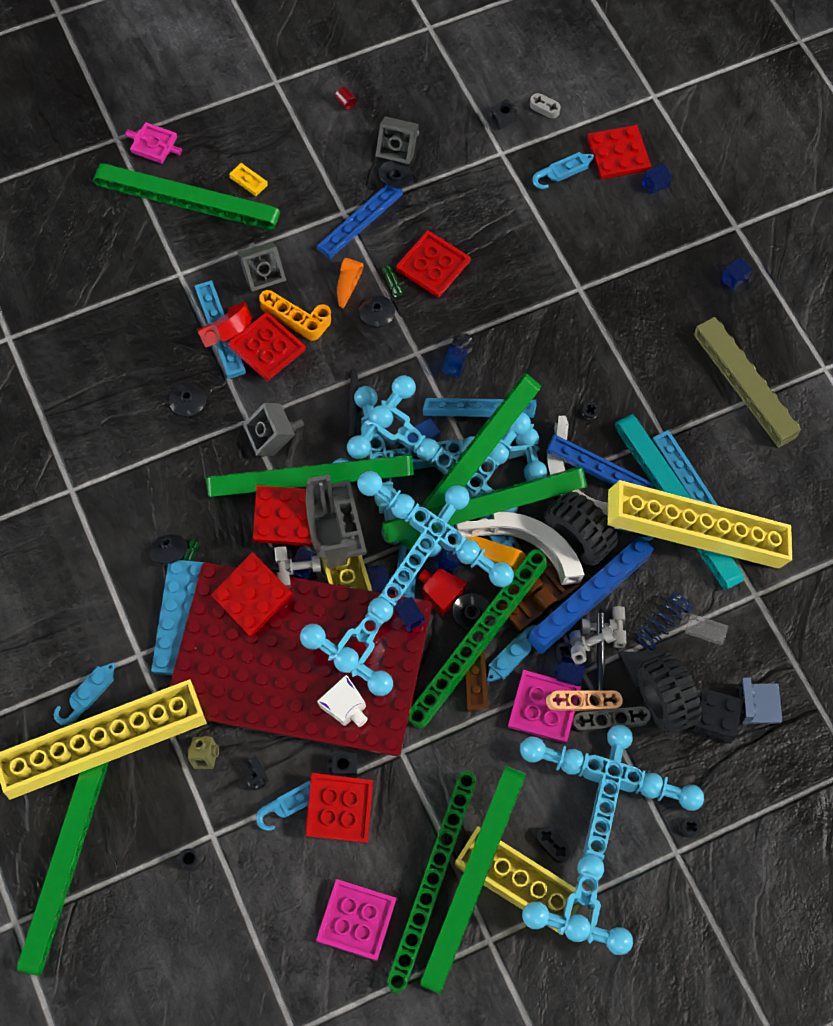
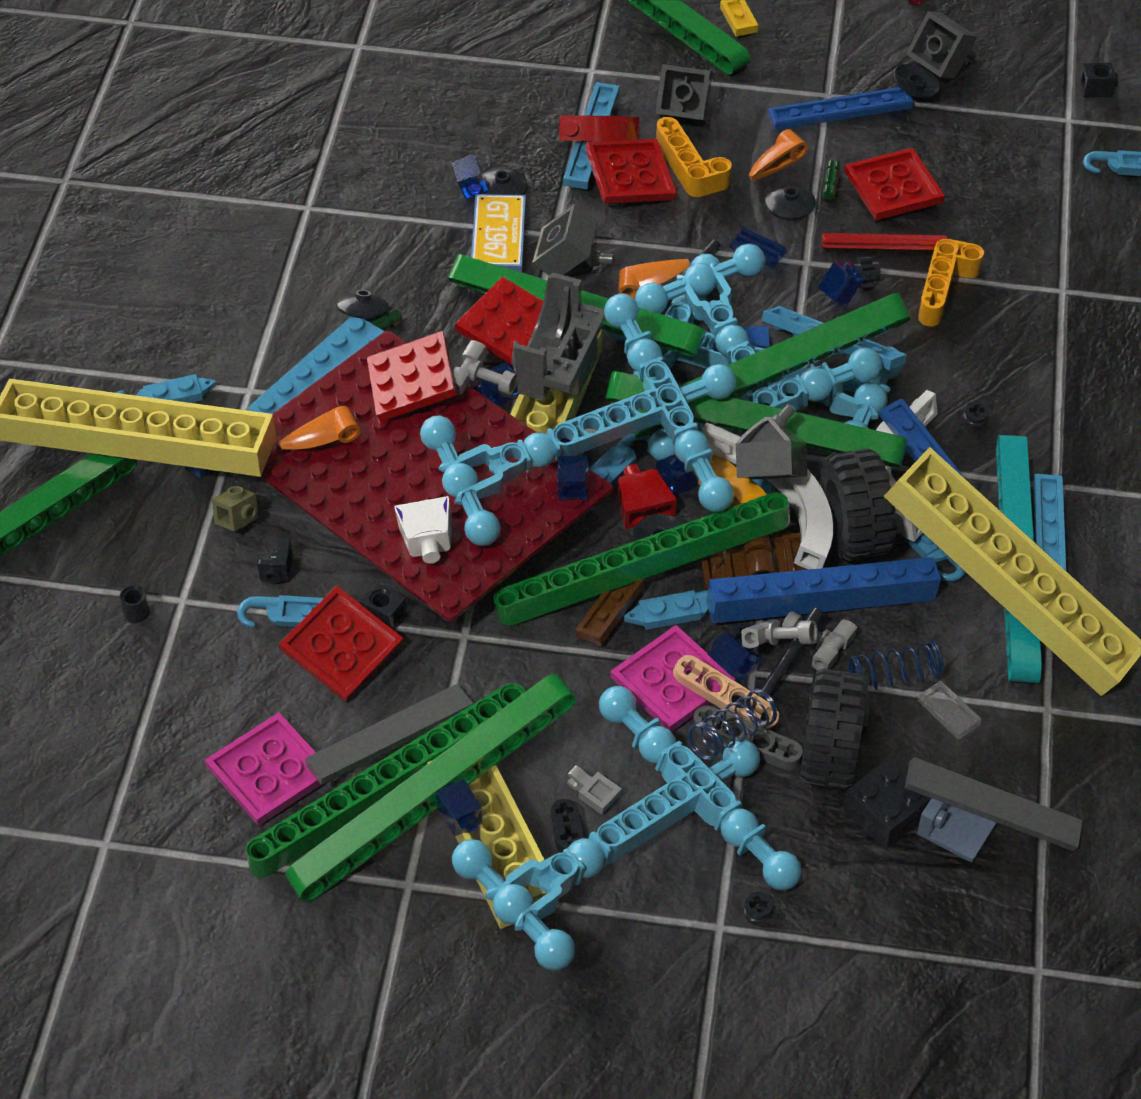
camera: 35 degrees right, 15 degrees down
(166, 408) = (469, 176): none -> clear blue brick
(213, 440) = (499, 230): none -> yellow tile
(225, 667) = (329, 427): none -> orange piece
(333, 425) = (658, 272): none -> orange piece
(382, 356) = (768, 246): none -> clear blue tile
(411, 851) = (387, 734): none -> dark grey tile
(455, 311) = (880, 241): none -> red axle
(501, 883) = (459, 808): none -> clear blue brick
(512, 325) = (948, 259): none -> light orange beam
(516, 526) = (771, 449): none -> dark grey piece
(554, 810) = (594, 791): none -> light grey plate
(601, 741) = (717, 737): none -> dark blue piece
(776, 683) = (993, 804): none -> dark grey tile

